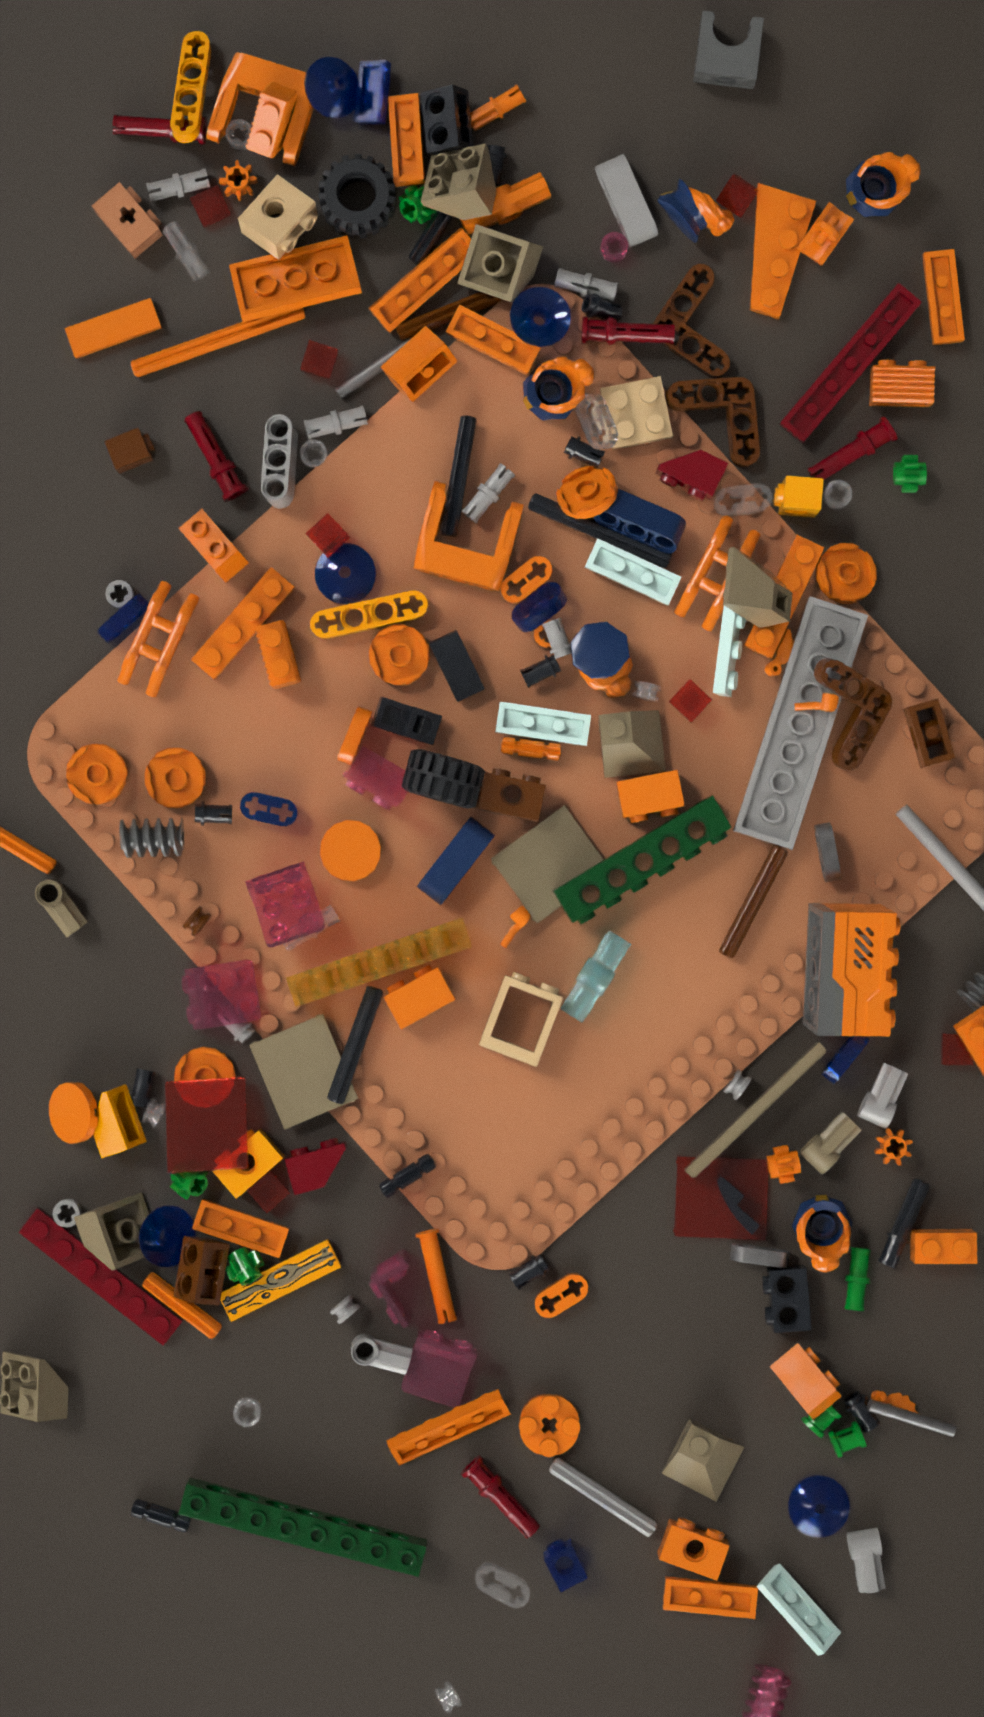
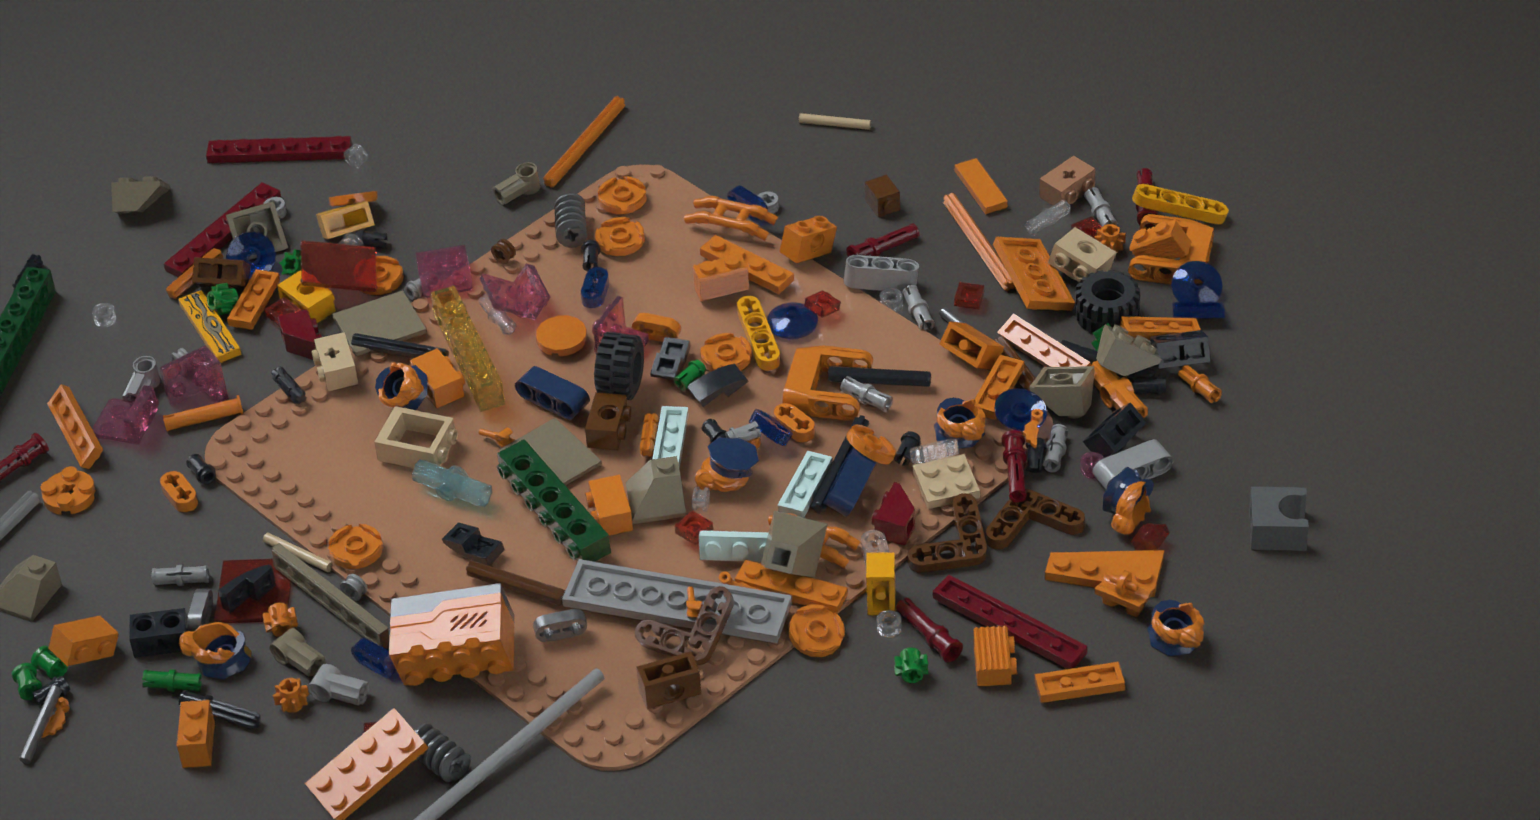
camera: 85 degrees right, 45 degrees down
(392, 1108) = (335, 362): none -> tan brick
(438, 697) = (694, 371): none -> green pin
(447, 1037) = (402, 386): none -> piece
(580, 213) = (1115, 431): none -> black brick
(583, 306) = (1031, 428): none -> orange piece
(669, 1151) = (302, 554): none -> tan bar
(677, 1085) = (355, 546): none -> orange tile
(689, 951) = (469, 543): none -> black slope
(697, 1282) = (180, 575): none -> light grey pin

